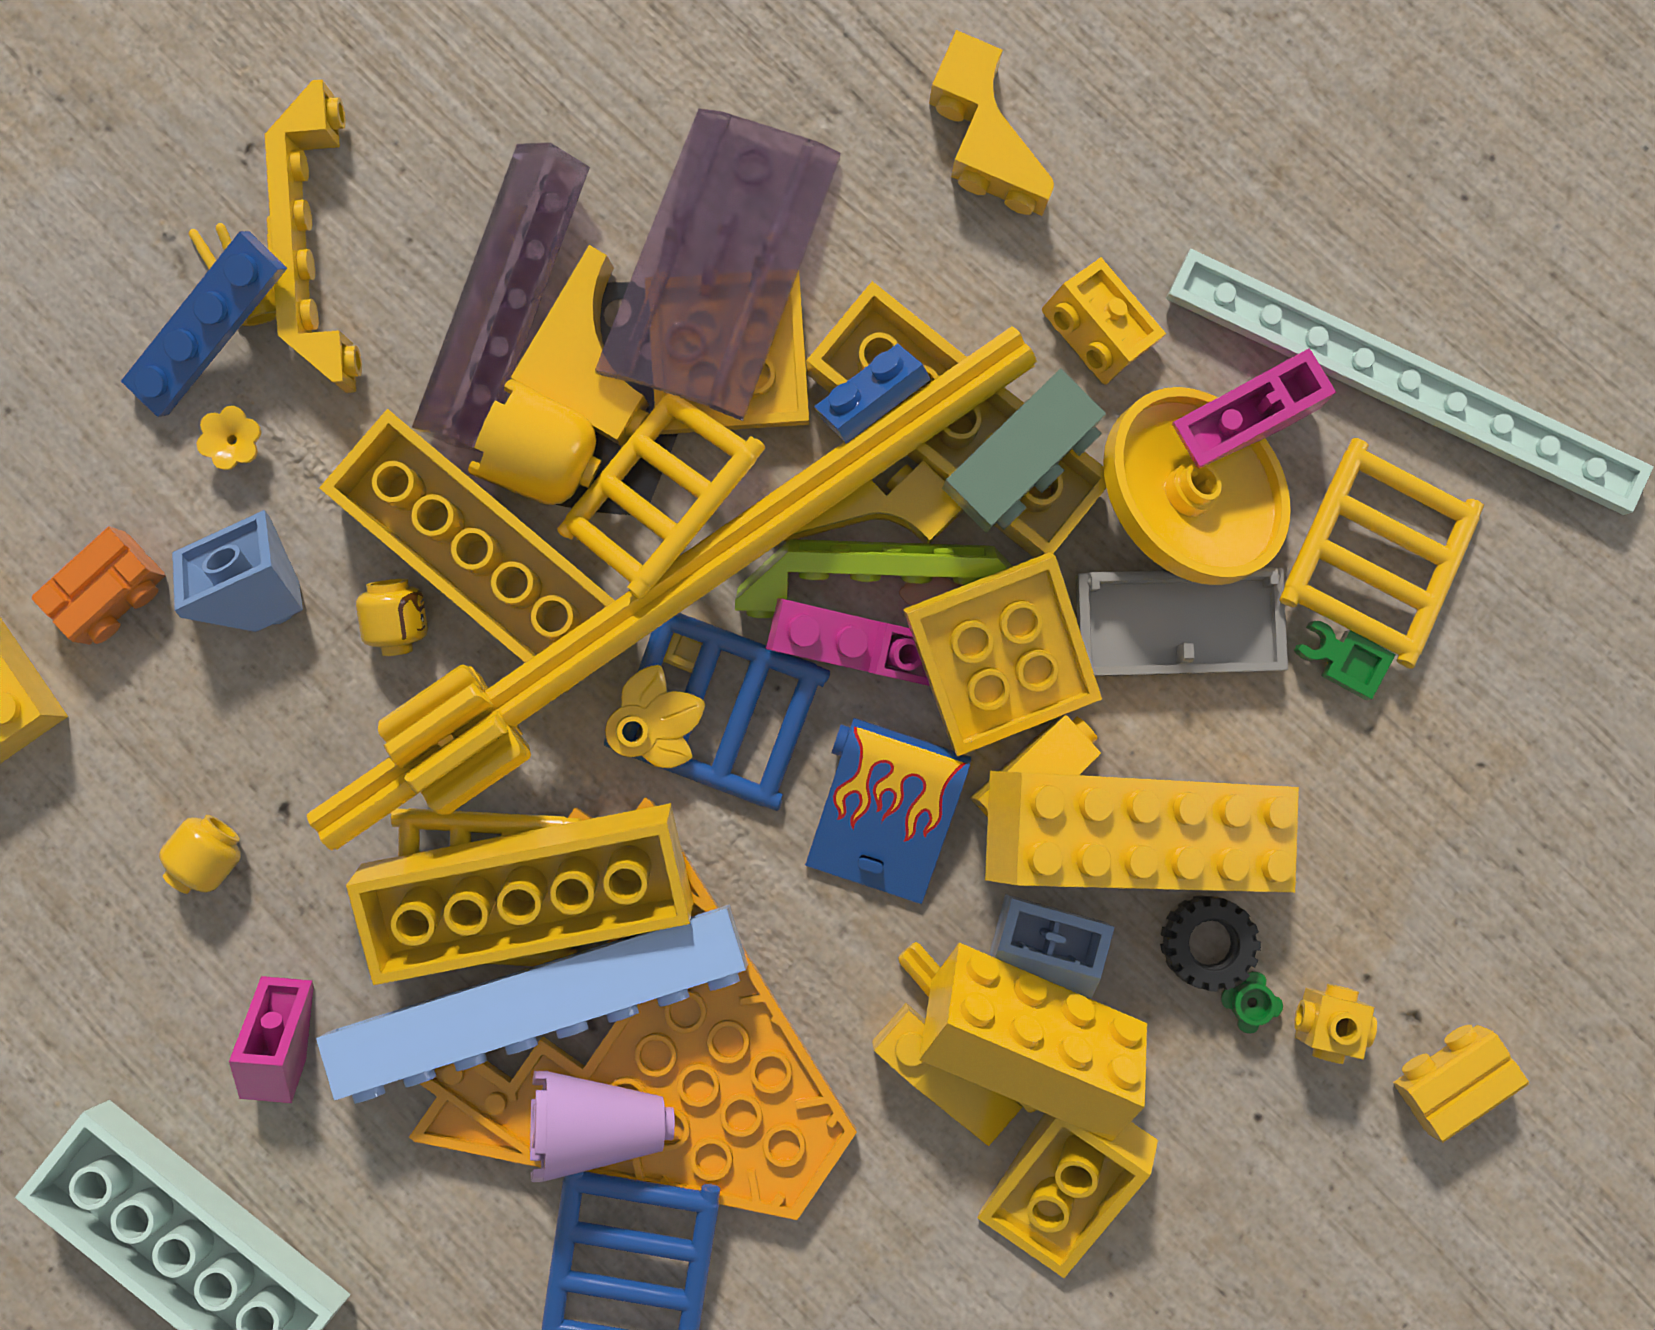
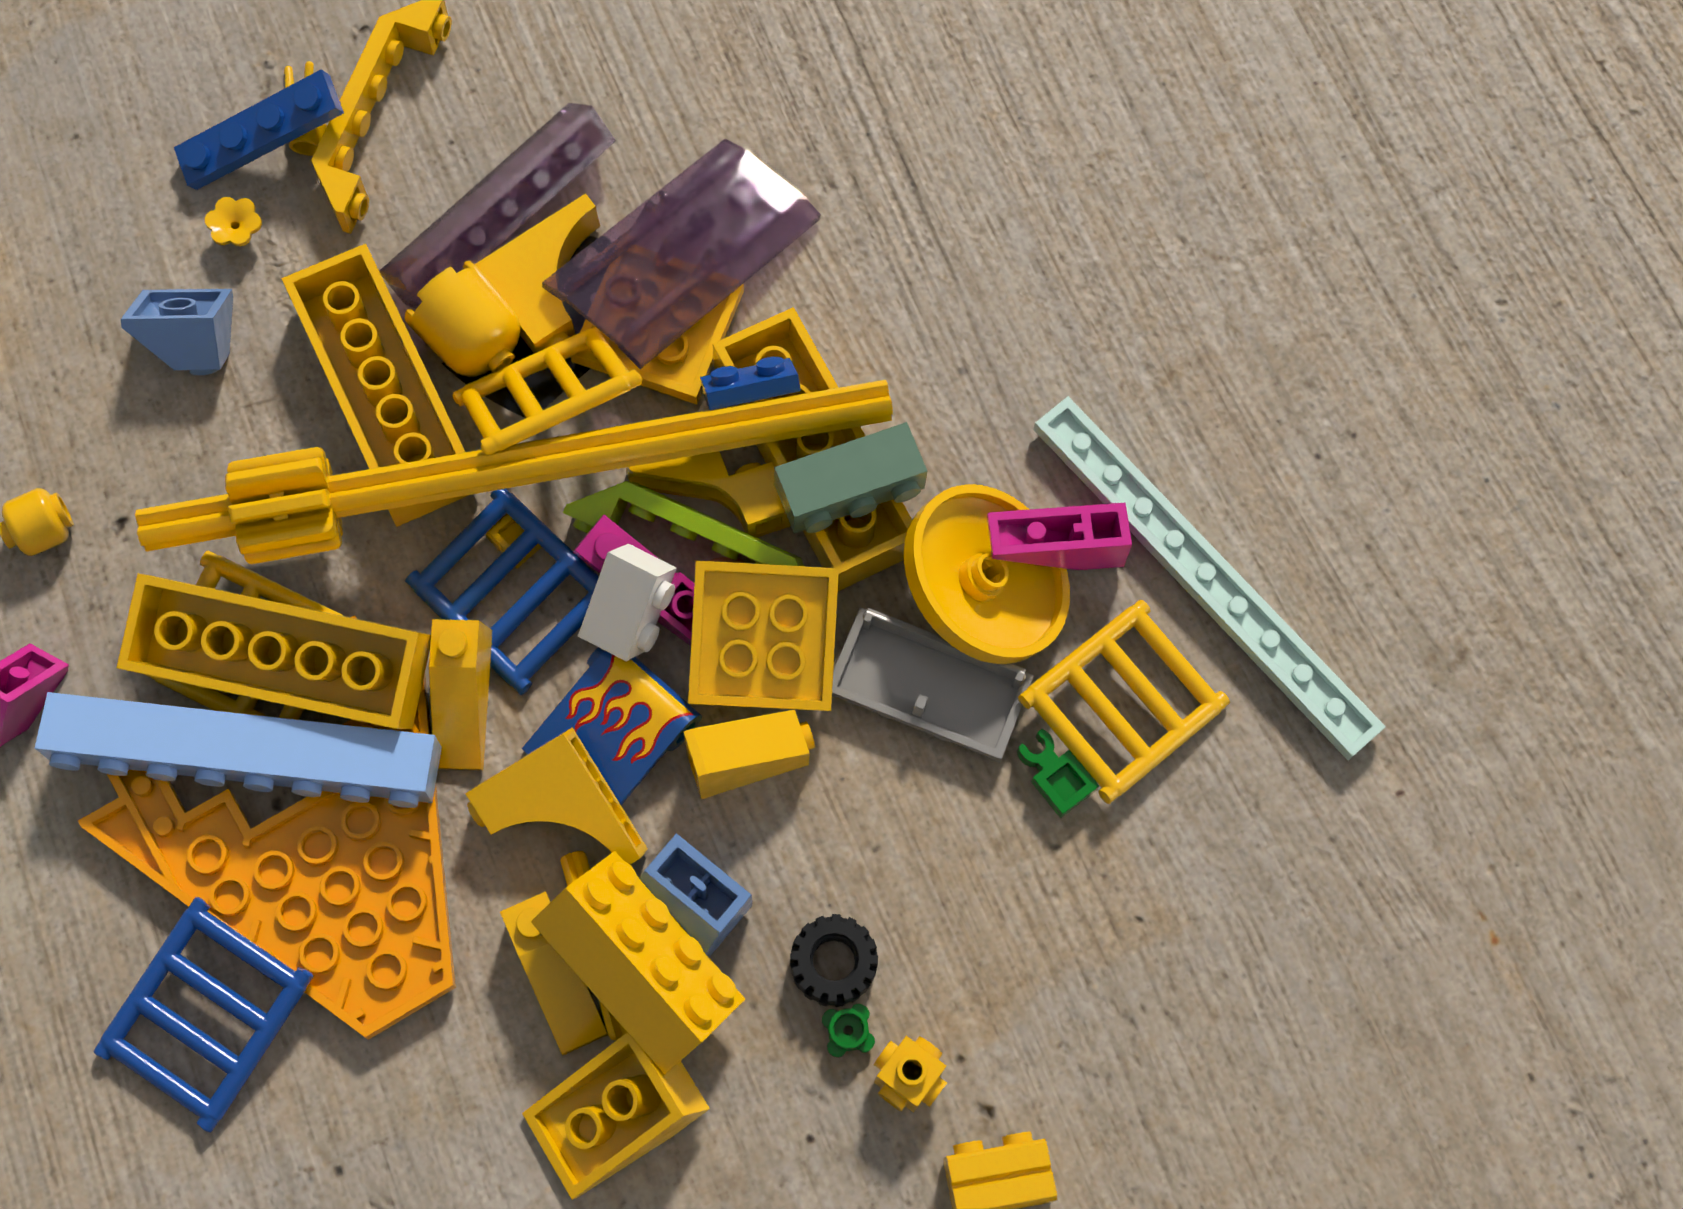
camera: 20 degrees right, 15 degrees down
(99, 587) = (72, 288): orange brick -> none
(391, 616) = (287, 405): yellow head -> none
(592, 1125) = (232, 865): lavender cone -> none
(662, 719) = (461, 574): yellow plate -> none
(720, 840) = (460, 690): none -> yellow slope
(852, 682) = (628, 602): none -> white brick
(869, 897) = (559, 787): none -> yellow arch
(992, 152) = (937, 257): yellow arch -> none
(1102, 320) = (972, 422): yellow bracket -> none
(1140, 833) = (810, 822): yellow brick -> none

